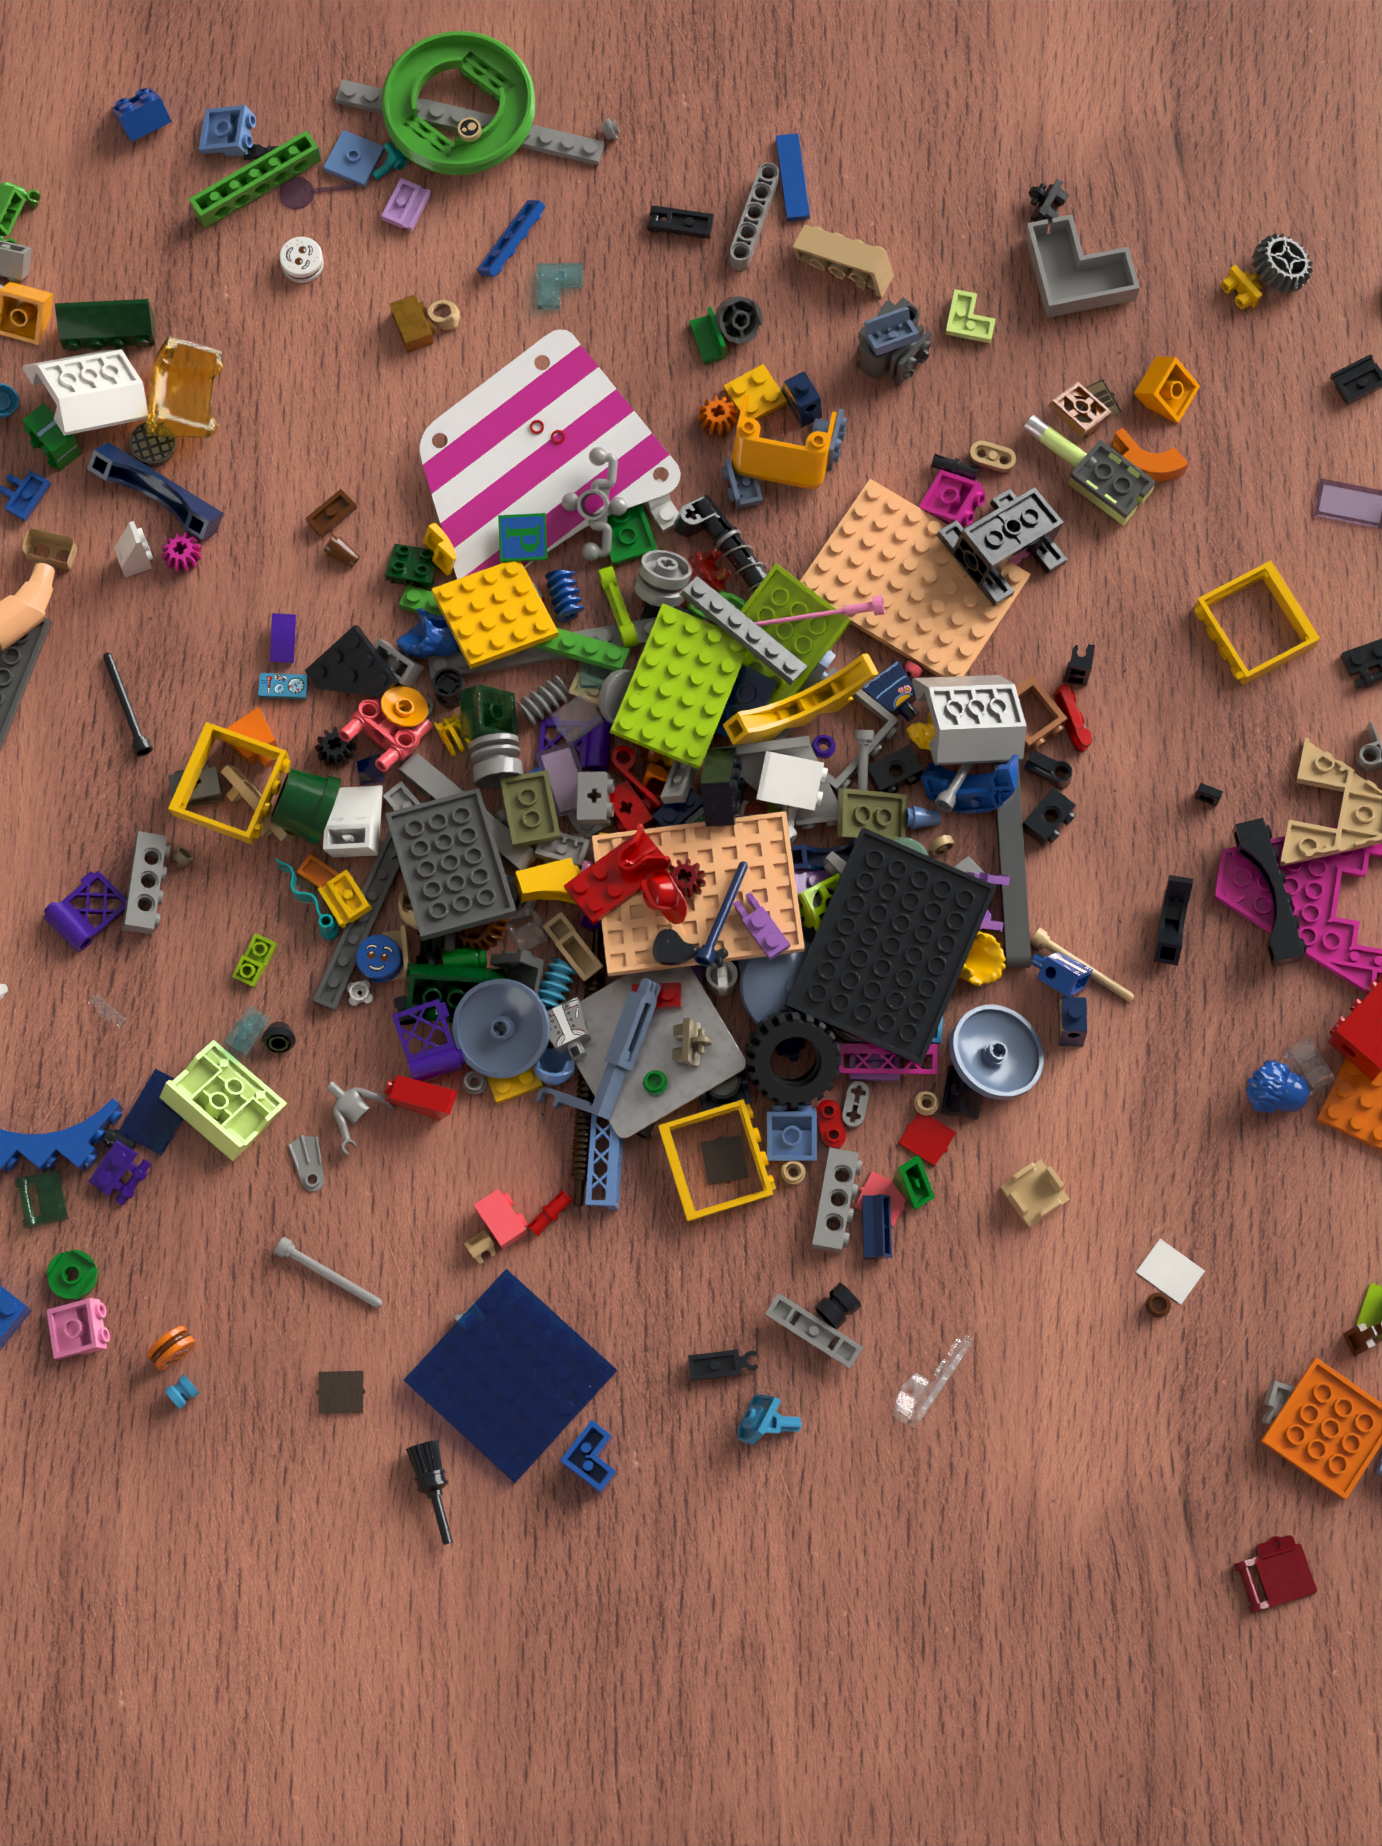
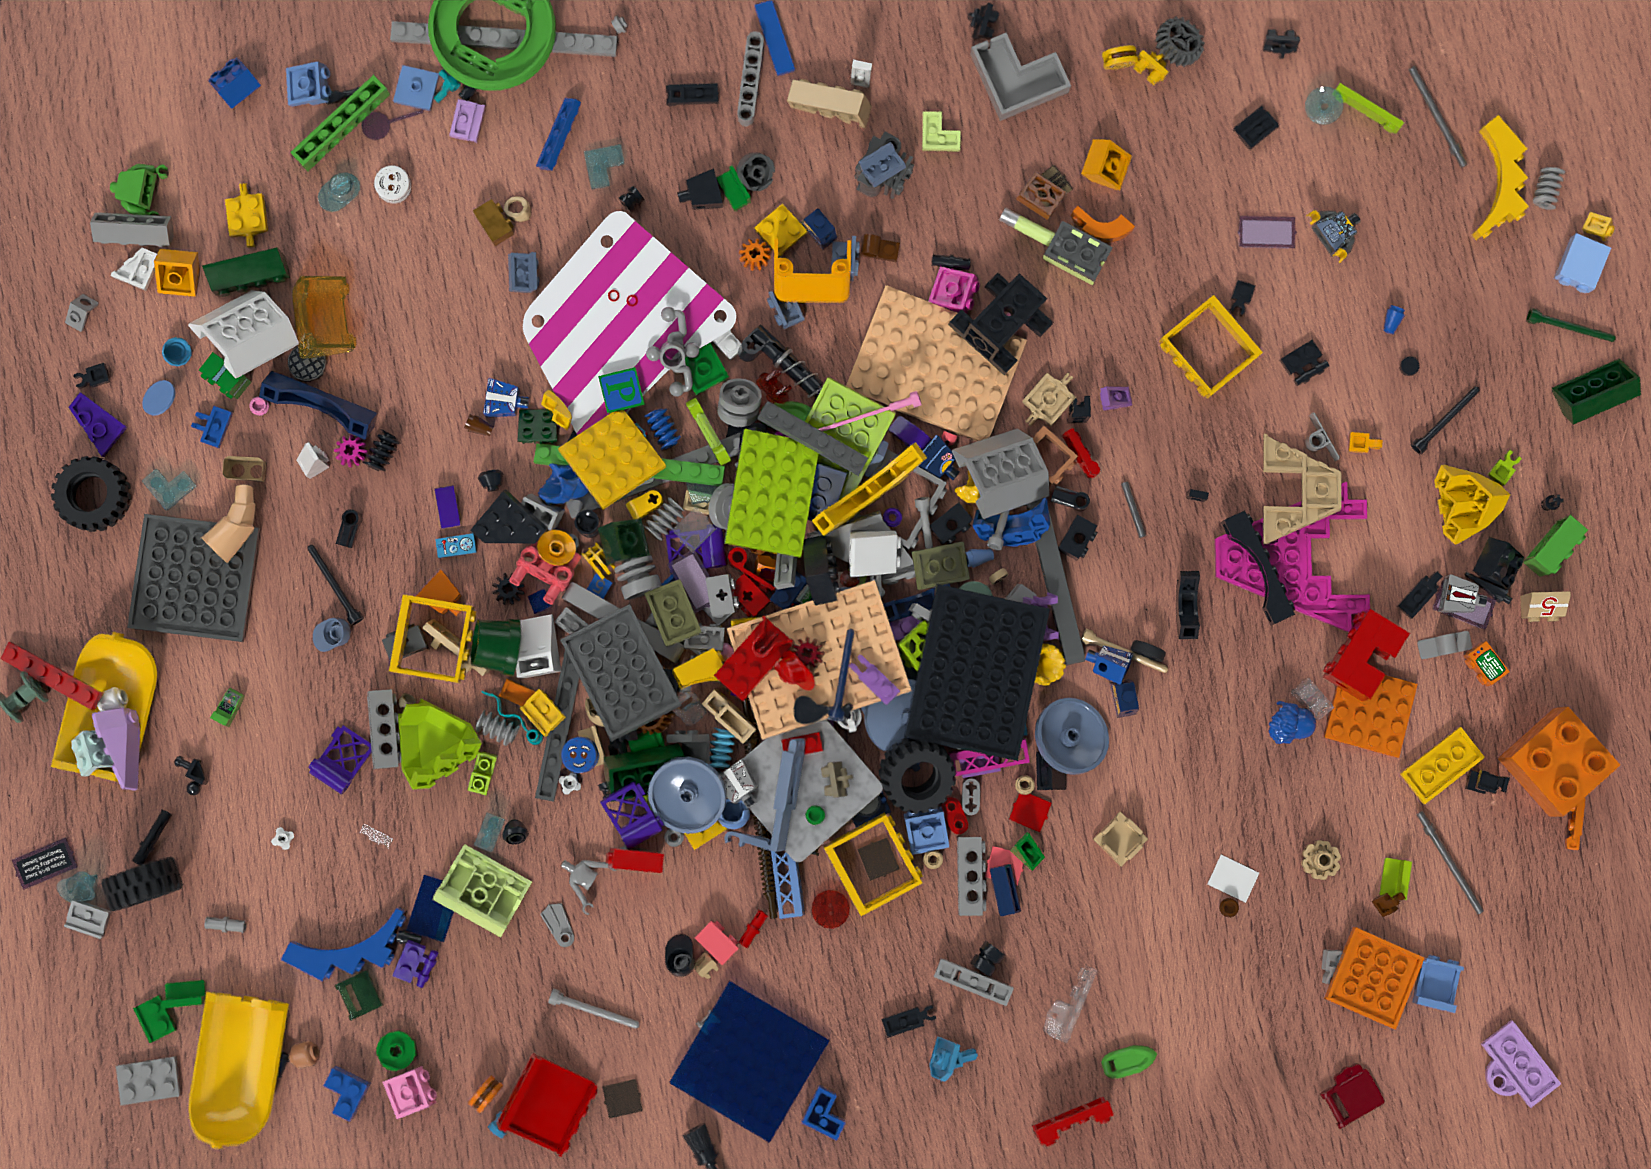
camera: 20 degrees left, 10 degrees up
(84, 481) = (259, 406): none -> bright pink plate
(108, 759) = (331, 634): none -> sand blue cap
(120, 264) = (246, 215): none -> yellow plate
(158, 643) = (348, 531): none -> black piece
(203, 910) = (433, 743): none -> lime panel
(218, 558) = (382, 451): none -> black piece
(235, 258) = (338, 192): none -> clear light blue piece
(245, 1376) = (547, 1104): none -> red panel
(283, 909) = (496, 728): none -> light grey piece
(331, 513) = (463, 395): reddish brown plate -> none
(343, 615) = (491, 479): none -> black cone
(378, 526) = (503, 399): none -> blue torso
(414, 173) = (467, 93): none -> black pin
(434, 386) = (523, 272): none -> sand blue bracket
(448, 765) = (599, 587): none -> blue tile
(450, 1228) = (679, 955): none -> black cap
(469, 129) = (506, 51): tan tile -> none
(521, 679) = (640, 506): none -> yellow piece
(582, 326) = (631, 198): none -> black wheel
(663, 1209) = (840, 909): none -> clear red plate
(669, 333) = (702, 191): none -> black torso
(857, 646) = (909, 433): none -> dark purple slope
(869, 437) = (879, 249): none -> reddish brown plate
(887, 229) = (861, 73): none -> white tile
(942, 1523) = (1098, 1110): none -> red piece
(993, 455) = (979, 245): tan plate -> none
(993, 1472) = (1128, 1061): none -> bright green piece
(1044, 648) = (1048, 399): none -> tan plate
(1112, 967) = (1148, 650): none -> black tyre
(1125, 798) = (1133, 509): none -> flat silver bar
(1127, 660) = (1115, 397): none -> medium lavender slope
(1205, 268) = (1119, 57): none -> yellow head
(1286, 1268) = (1320, 860): none -> tan plant
(1307, 571) = (1242, 294): none -> black plate

